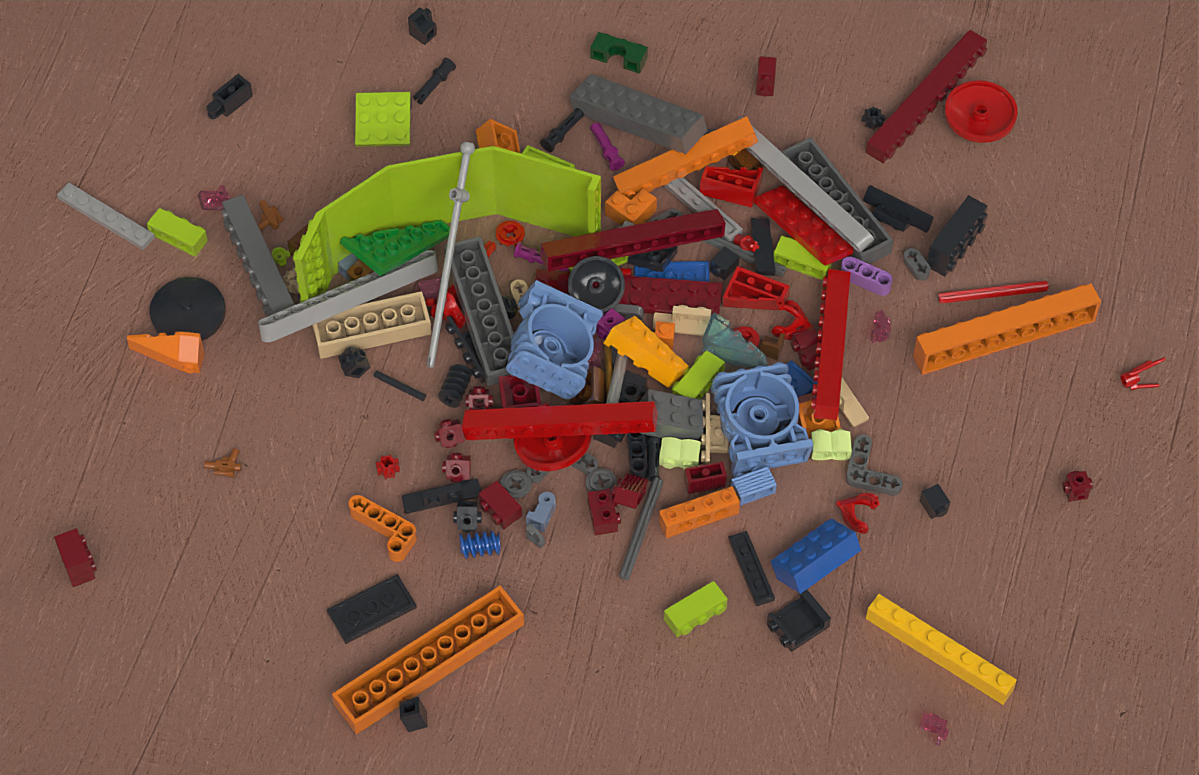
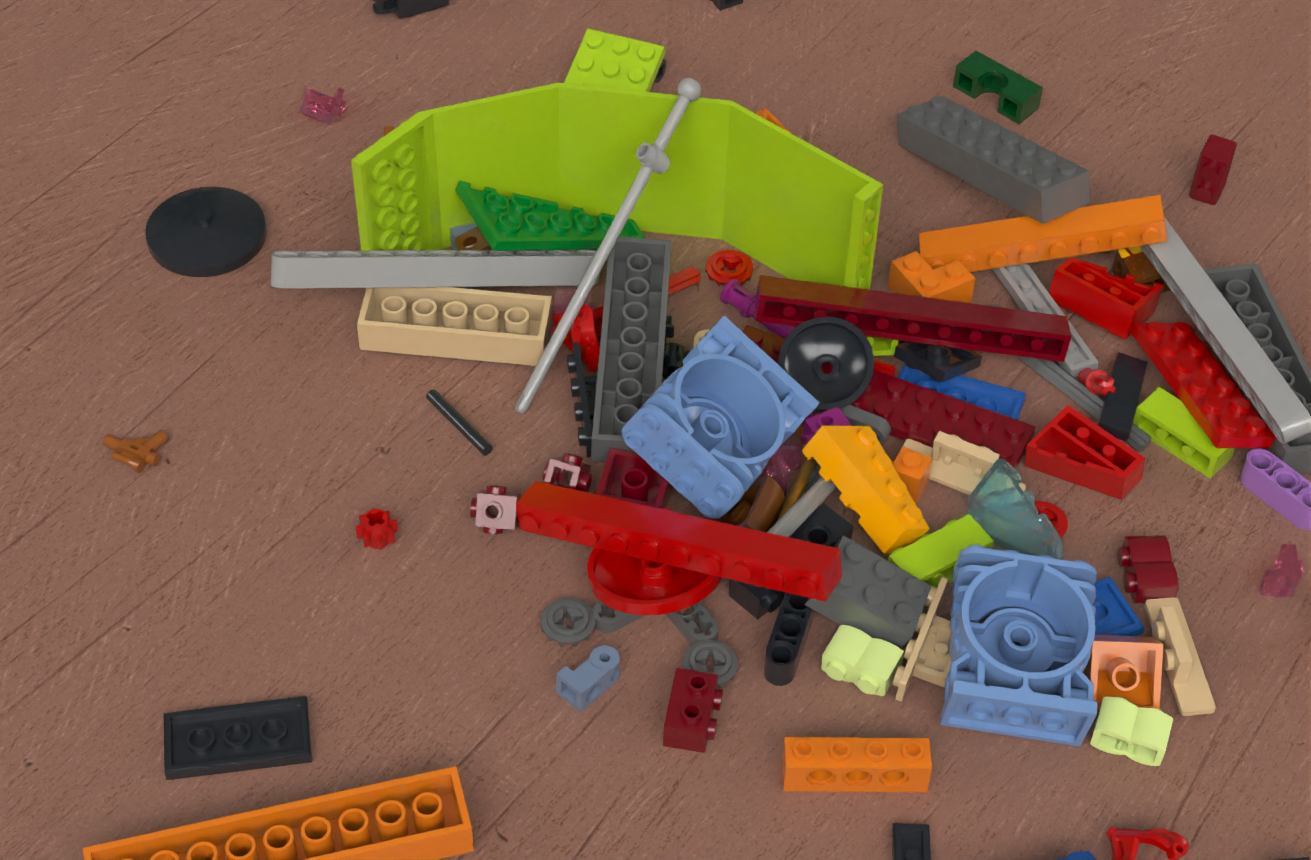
camera: 20 degrees right, 10 degrees down
(106, 216) = (166, 87): light grey plate -> none
(177, 232) = (249, 130): lime brick -> none
(180, 351) = (153, 270): orange wedge -> none
(255, 255) = (334, 194): dark grey brick -> none
(354, 362) = (403, 365): black brick -> none
(362, 510) = (331, 615): orange beam -> none
(439, 75) = (719, 47): black pin -> none
(441, 496) = (439, 599): black bracket -> none
(455, 385) = (541, 443): black piece -> none
(457, 467) = (484, 563): dark red brick -> none
(467, 516) = (462, 642): black brick -> none
(480, 544) = (462, 695): blue piece -> none
(500, 505) = (525, 644): dark red brick -> none
(534, 536) = (559, 711): dark grey tile -> none
(557, 134) = (864, 160): black pin -> none
(610, 152) = (930, 205): magenta pin -> none
(629, 491) = (749, 690): dark red brick -> none
(641, 528) = (744, 761): dark grey axle -> none
(653, 444) = (822, 632): black pin -> none
(705, 477) = (888, 710): dark red brick -> none
(724, 263) = (1048, 400): black brick -> none
(753, 484) = (969, 752): medium blue brick -> none
(772, 347) = (1084, 546): reddish brown panel -> none
(801, 320) = (1115, 531): red helmet -> none
(832, 345) = (1183, 571): red brick -> none
(861, 471) = (1173, 792): dark grey beam -> none

